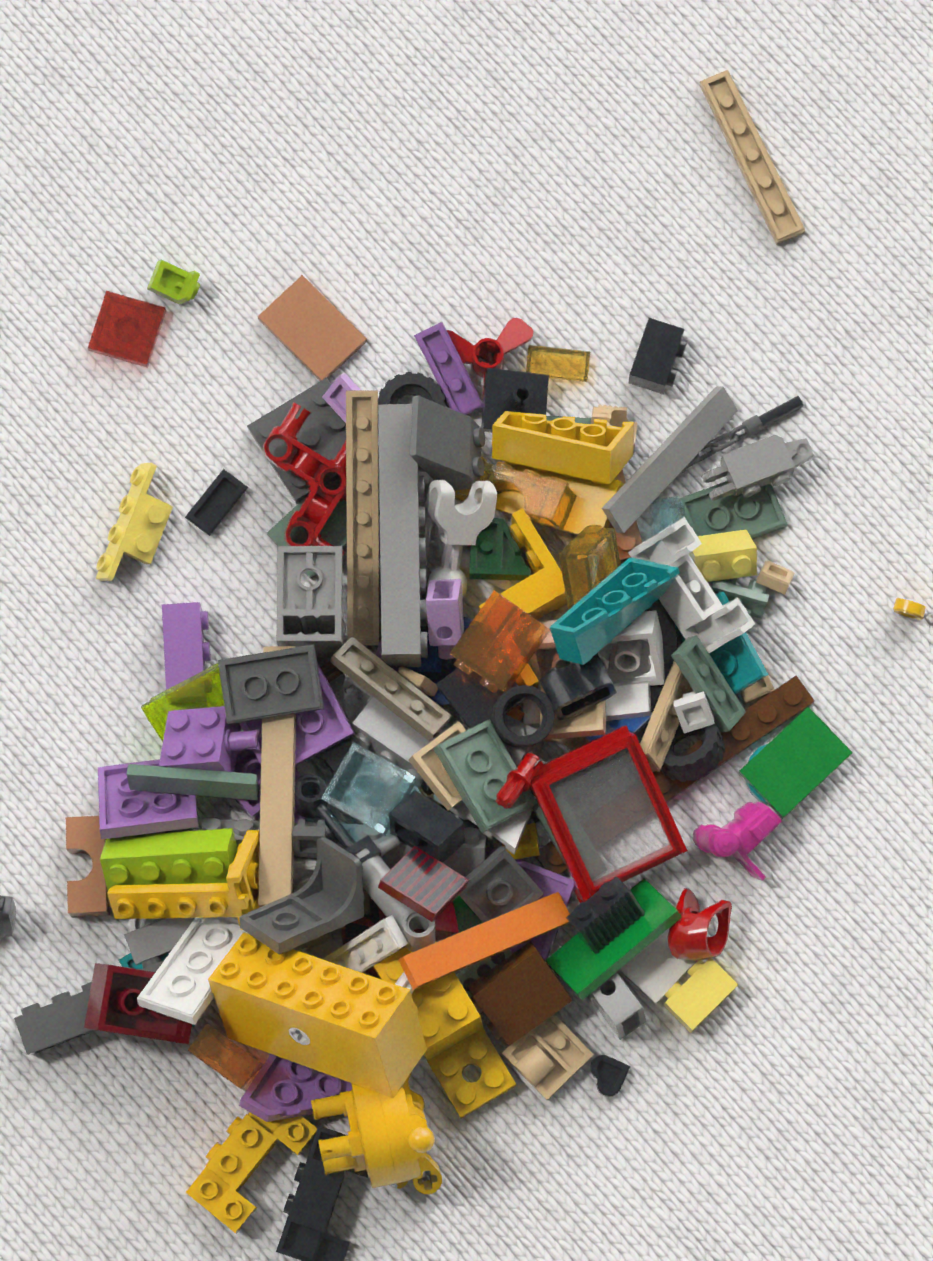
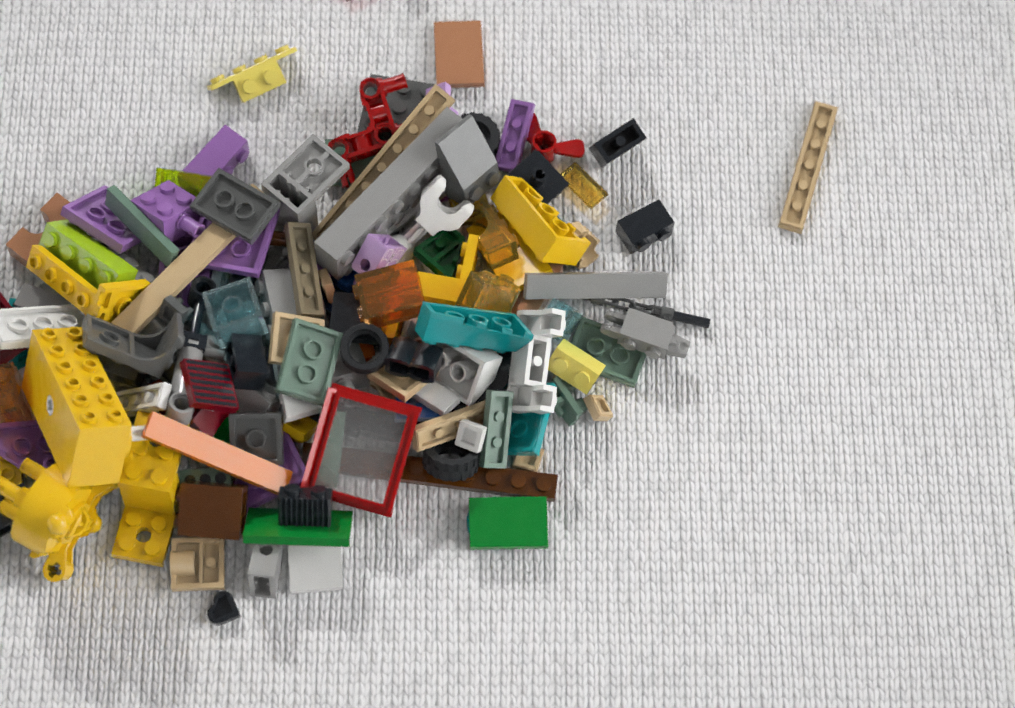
camera: 35 degrees right, 10 degrees down
(216, 502) = (313, 100): black tile -> none
(518, 780) = (324, 379): red axle -> none
(556, 292) = (617, 143): none -> black brick
(689, 934) = (348, 562): red helmet -> none
(699, 994) = (321, 608): light yellow brick -> none
(740, 836) = (446, 533): dark pink piece -> none
(909, 609) = (663, 494): yellow tile -> none

